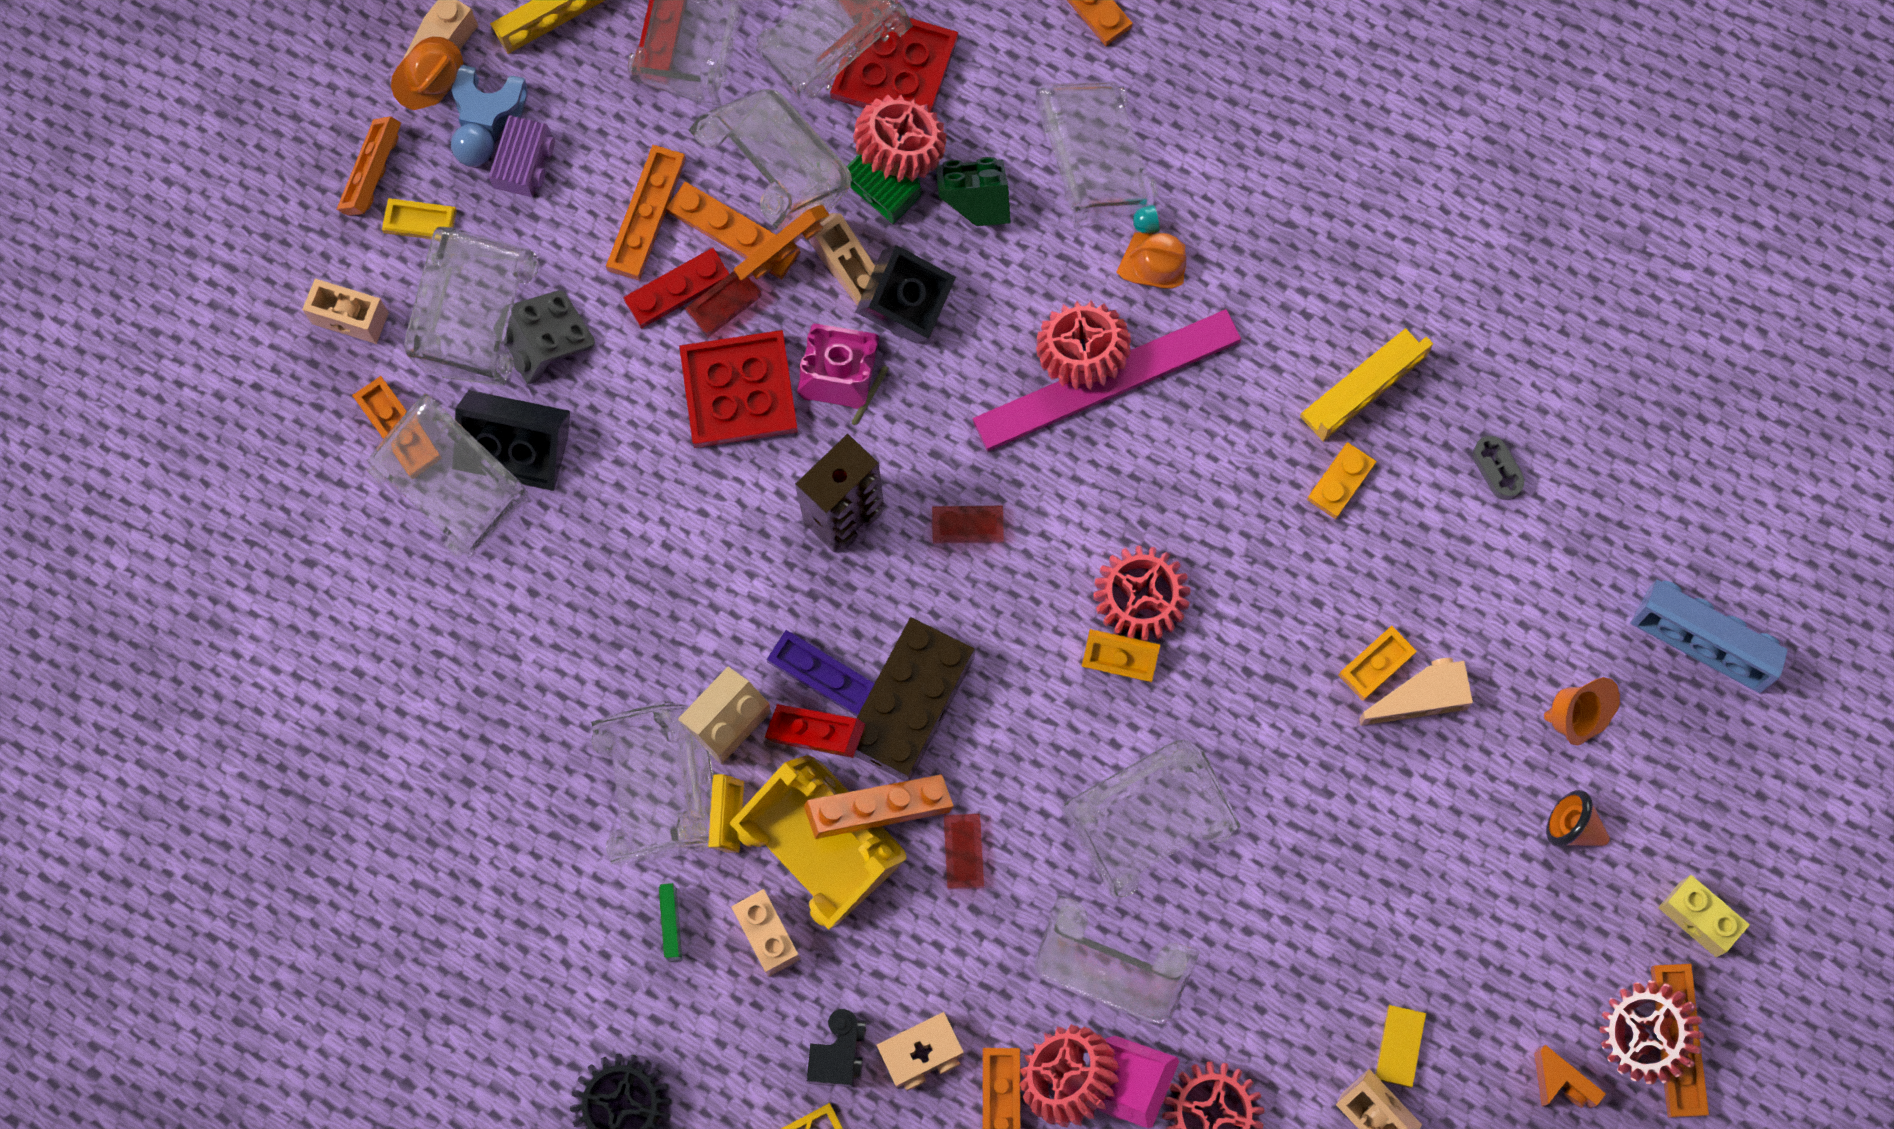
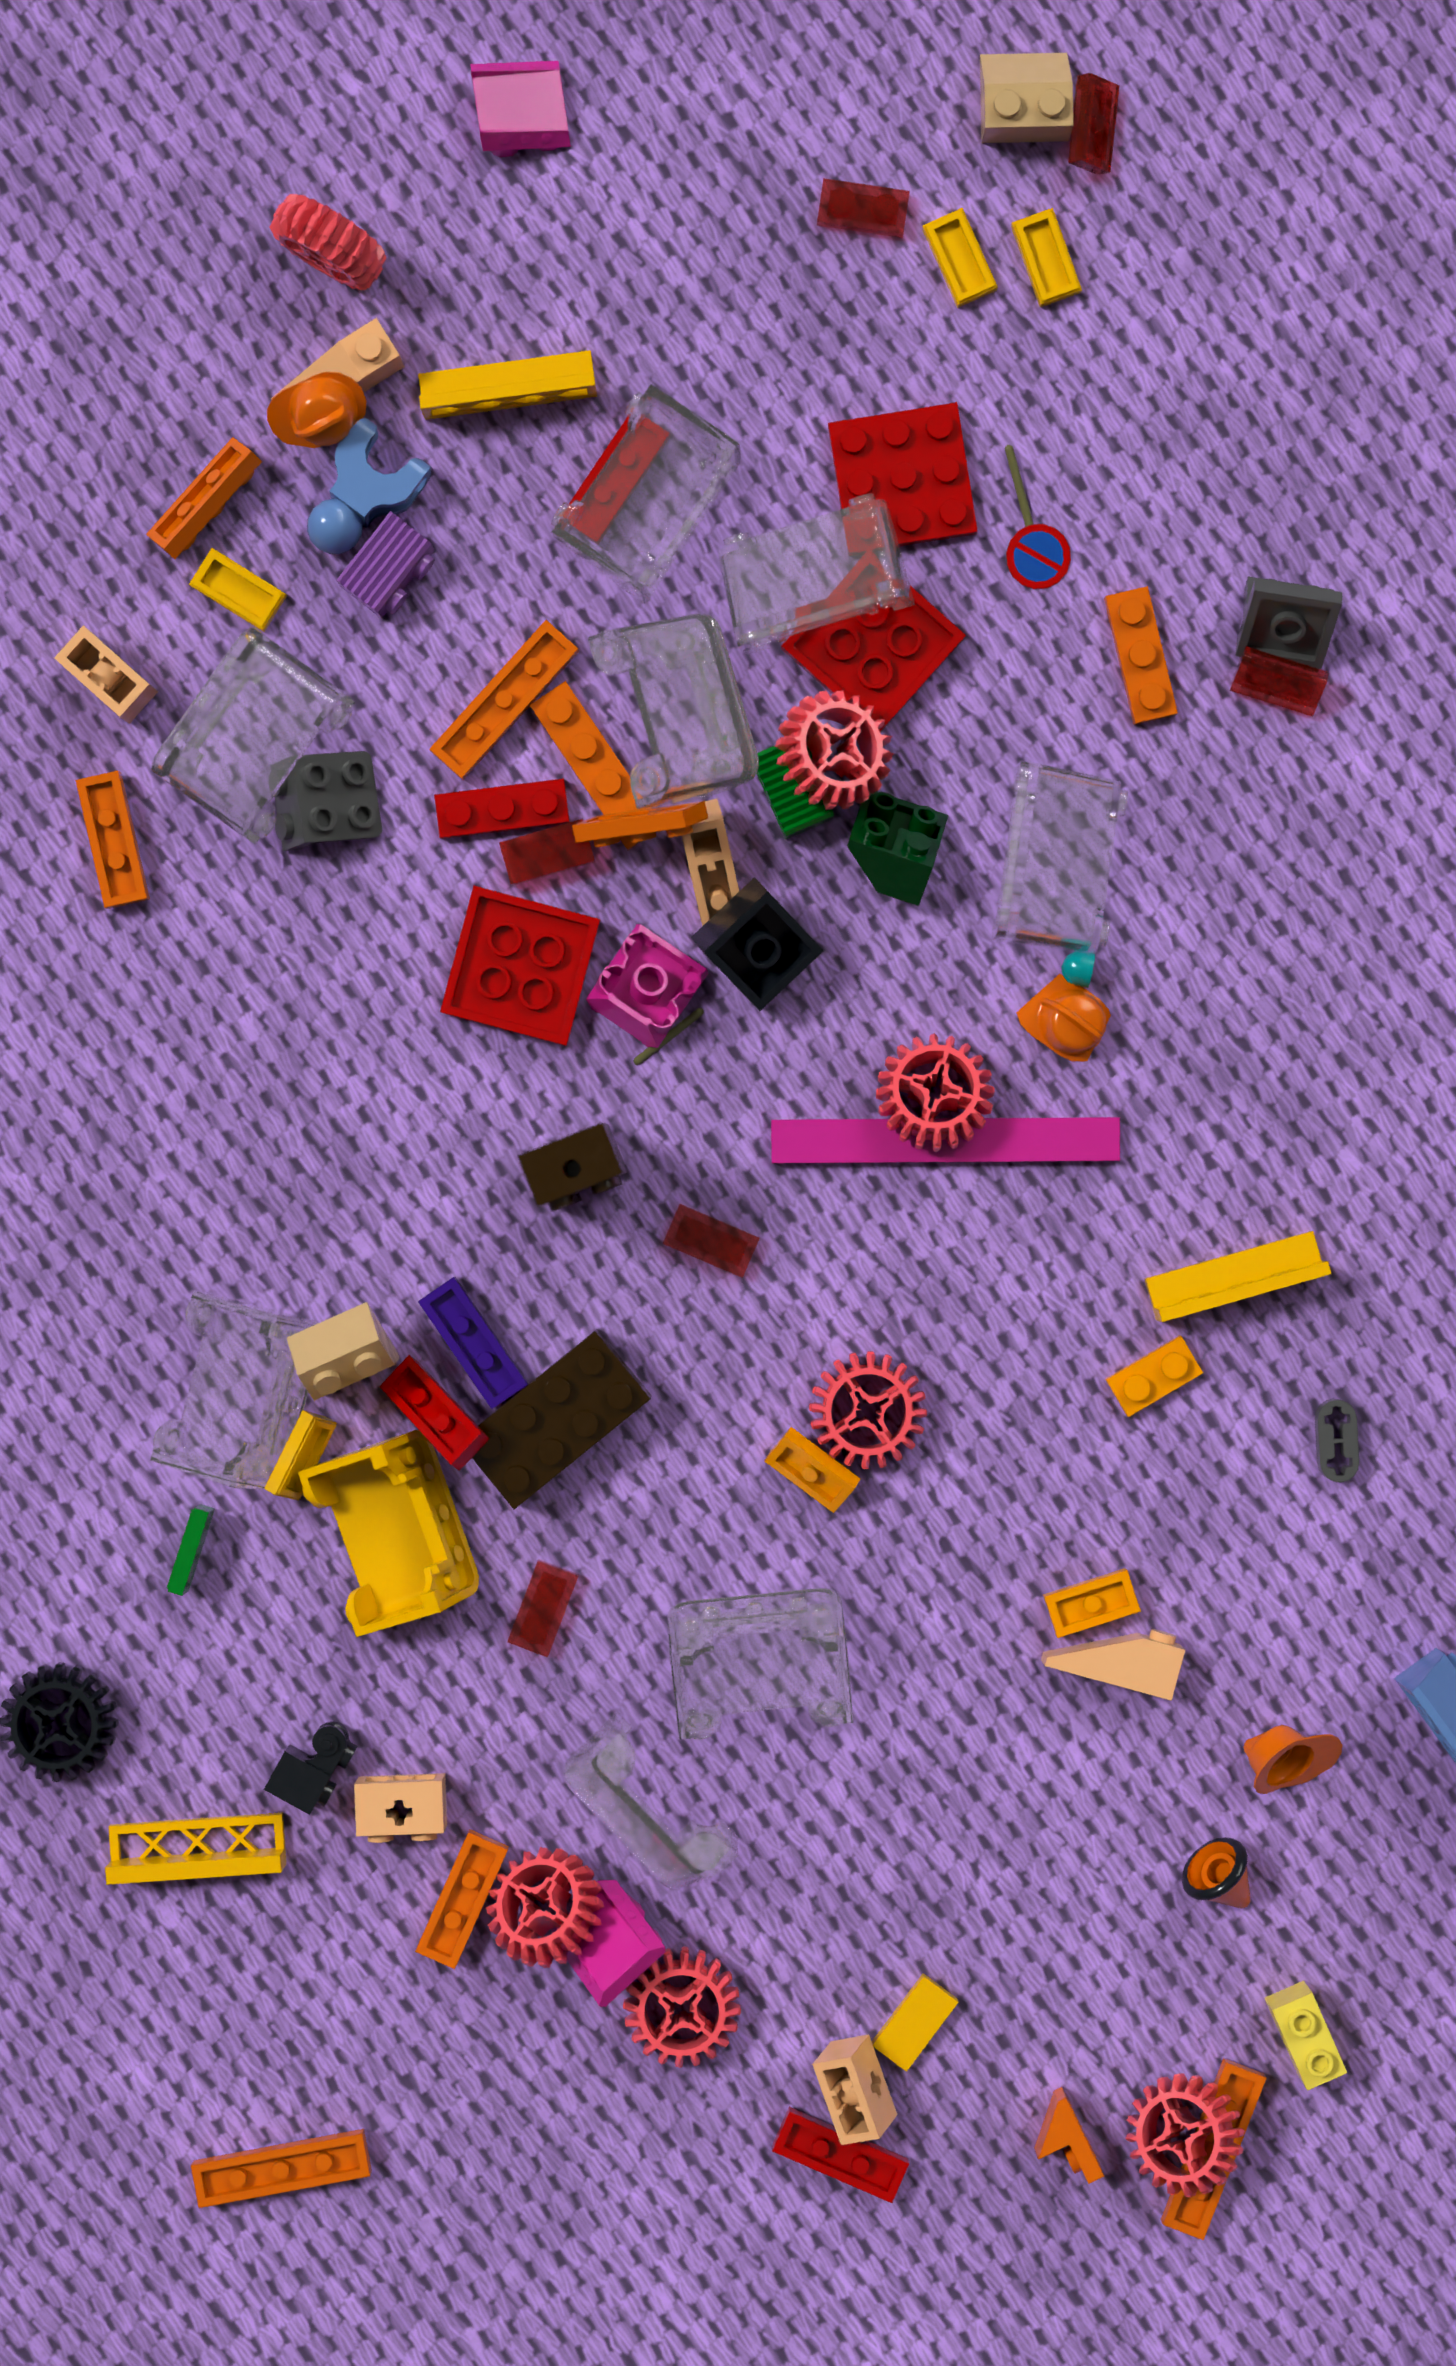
camera: 30 degrees right, 15 degrees up
(448, 477) = (141, 935): clear windscreen -> none
(519, 434) = (235, 912): black slope -> none
(765, 933) = (288, 1607): light nougat brick -> none
(878, 806) = (468, 1527): orange plate -> none

